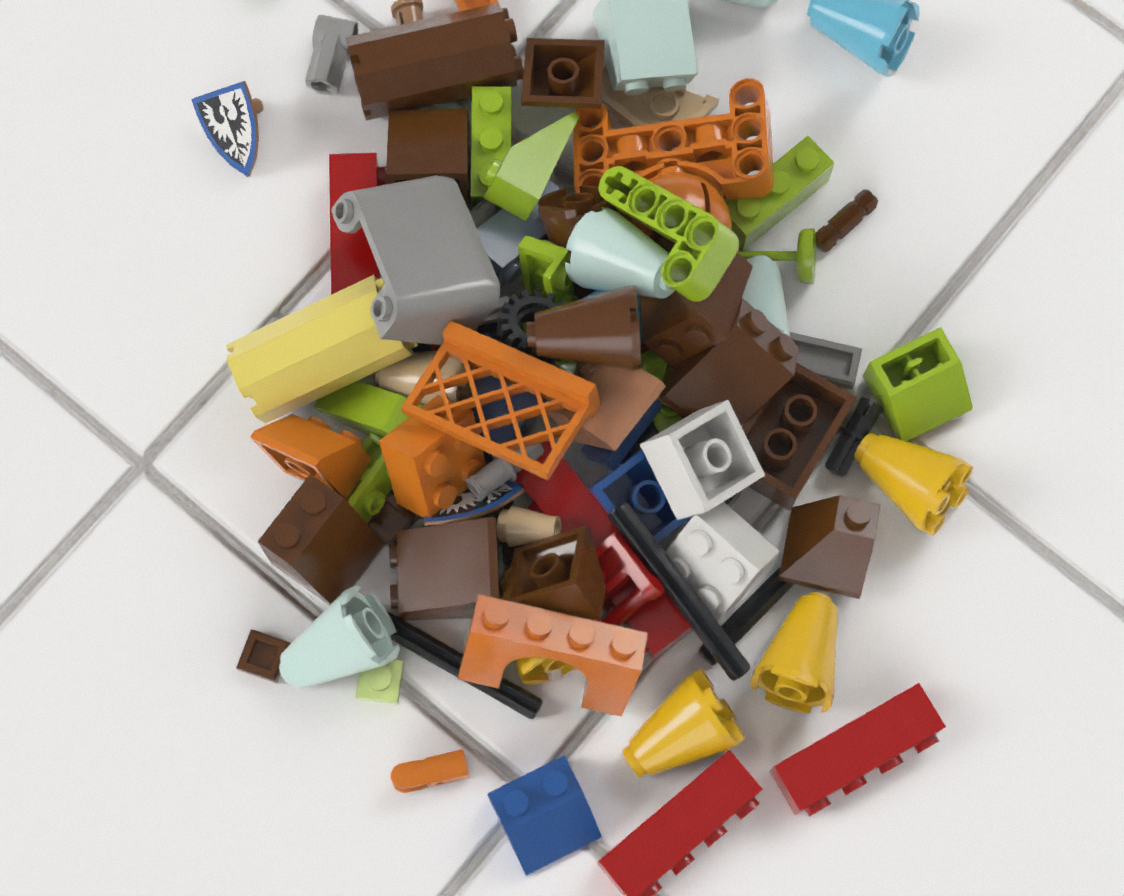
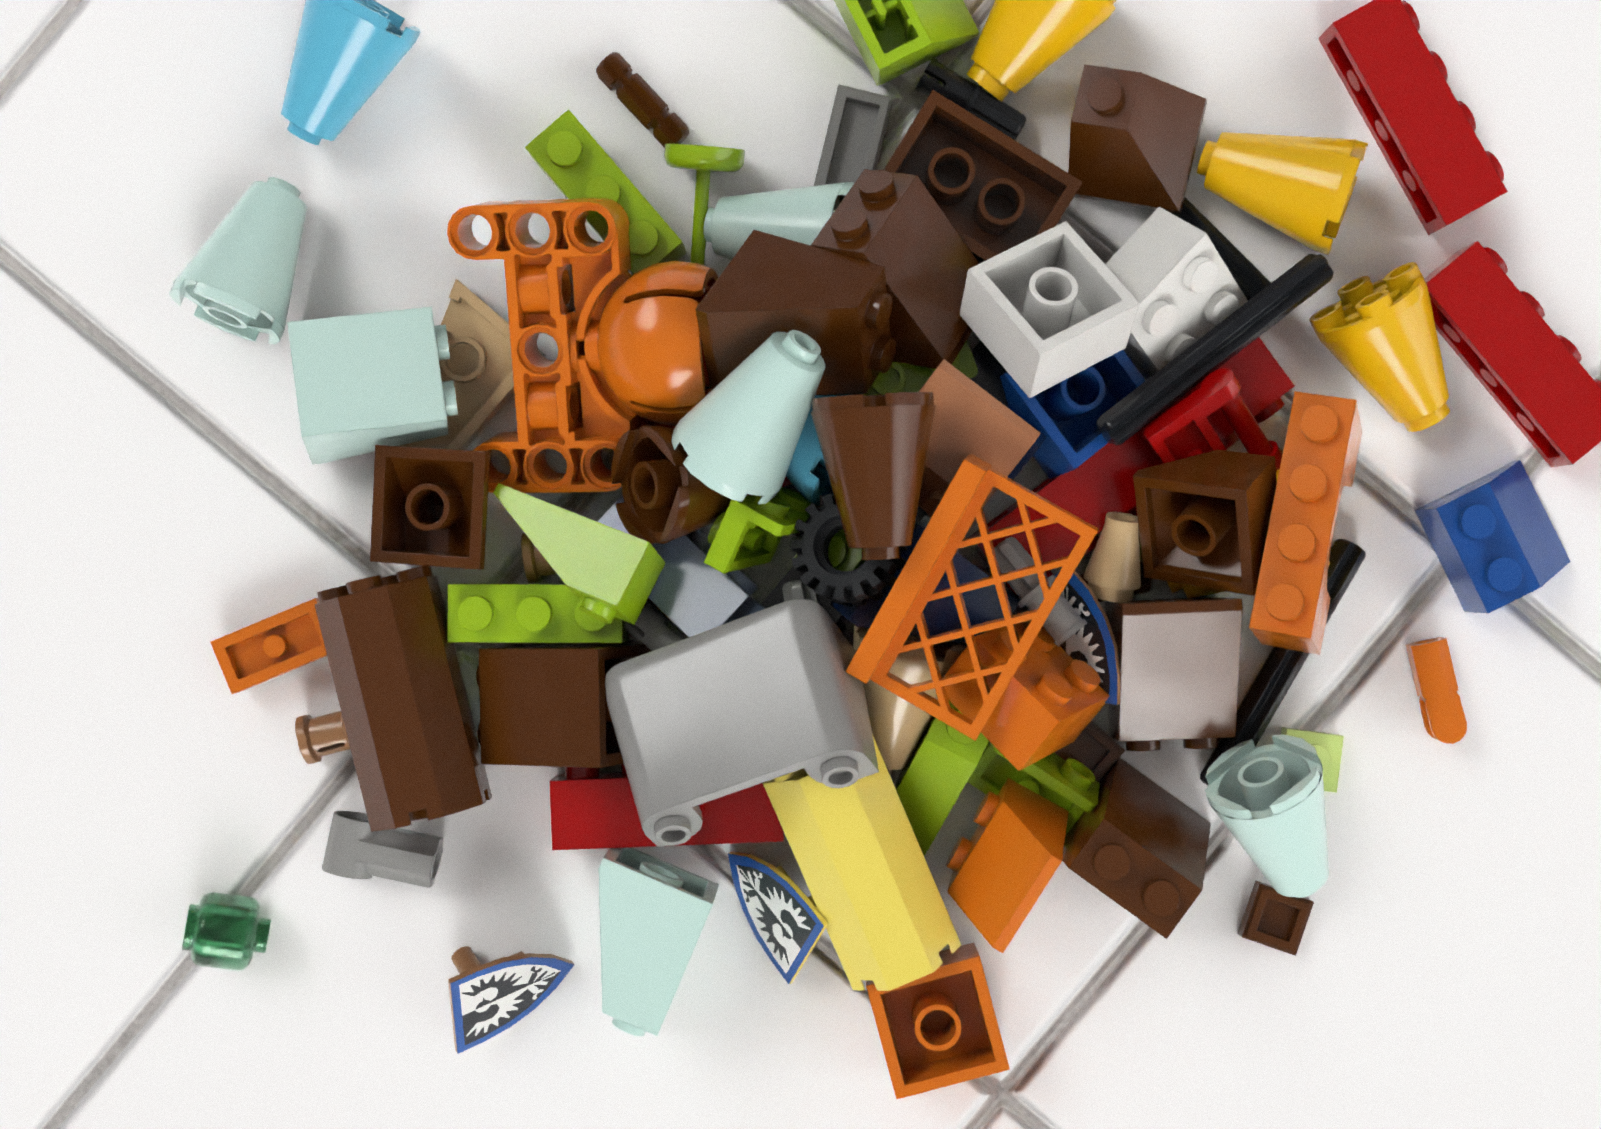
camera: 90 degrees left, 15 degrees up
(200, 408) = (939, 1026): none -> orange brick
(269, 214) = (647, 934): none -> light aqua slope
(280, 302) = (777, 912): none -> shield
(702, 242) = (712, 354): lime beam -> none

